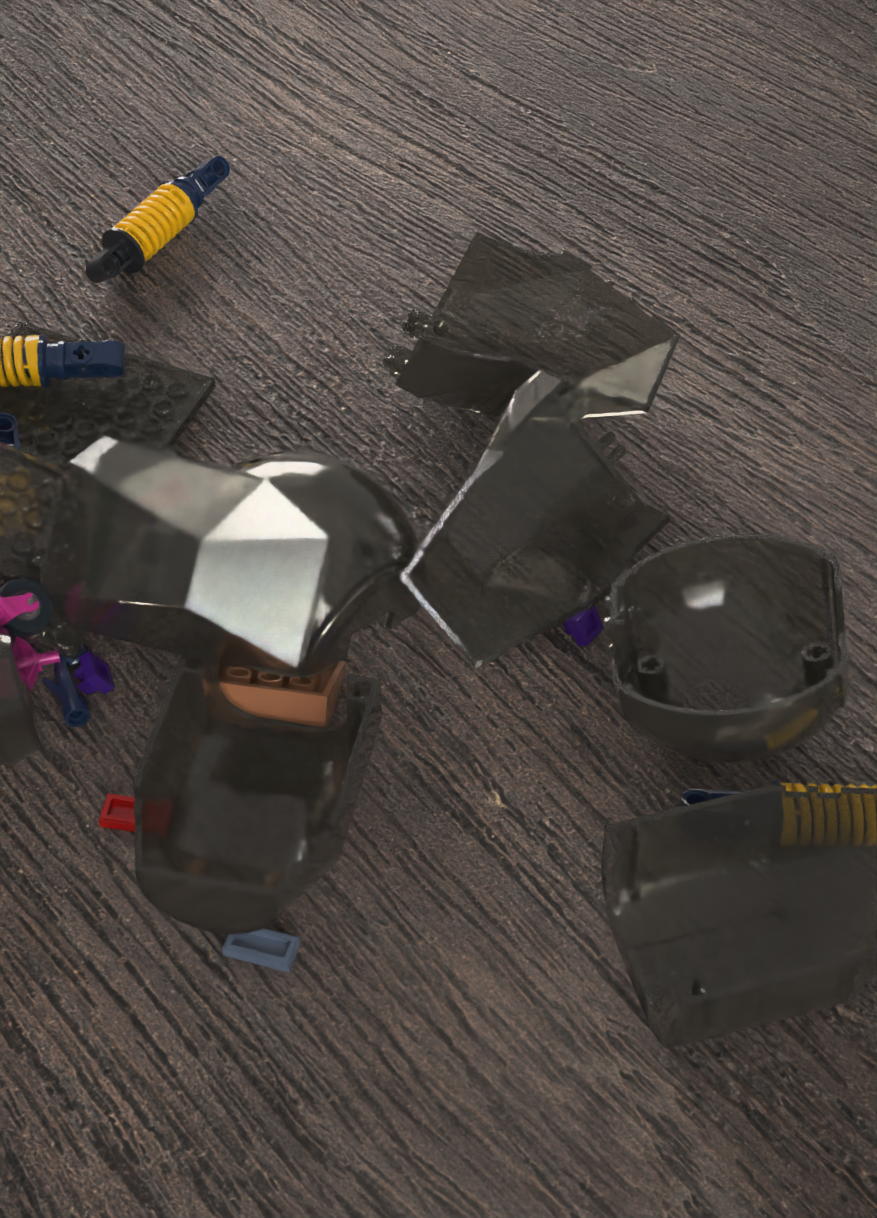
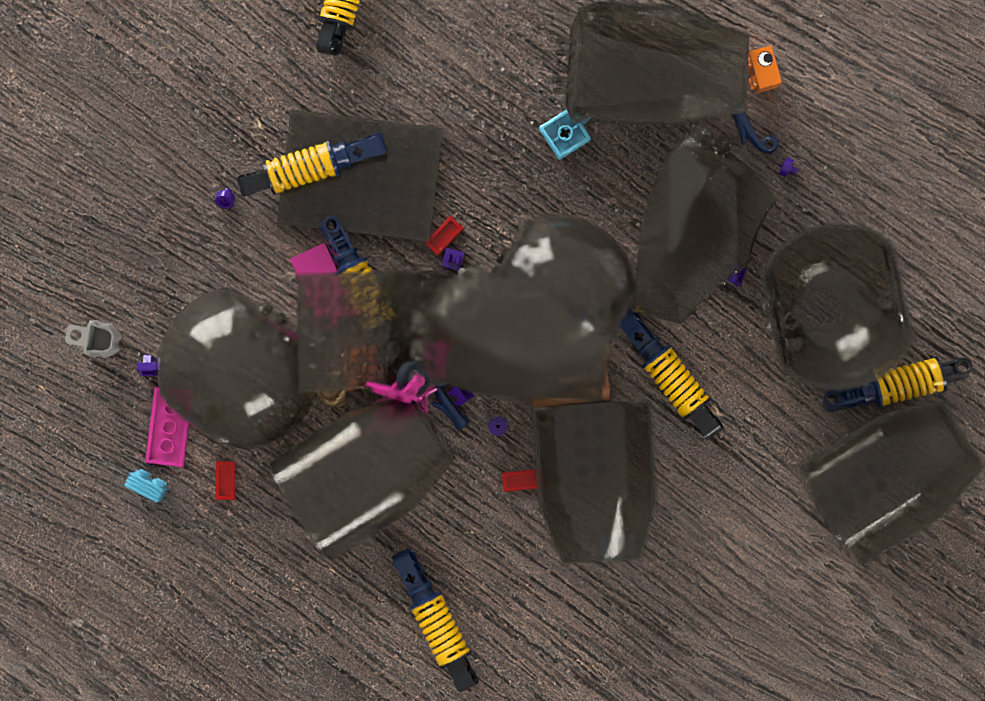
camera: 25 degrees left, 40 degrees up
(132, 733) = (497, 431): none -> dark purple tile
(383, 417) = (561, 145): none -> medium azure brick
(437, 721) = (664, 364): none -> piece
(649, 466) = (747, 130): none -> dark blue plant
(691, 401) = (763, 70): none -> orange brick
(700, 519) = (787, 168): none -> dark purple tile

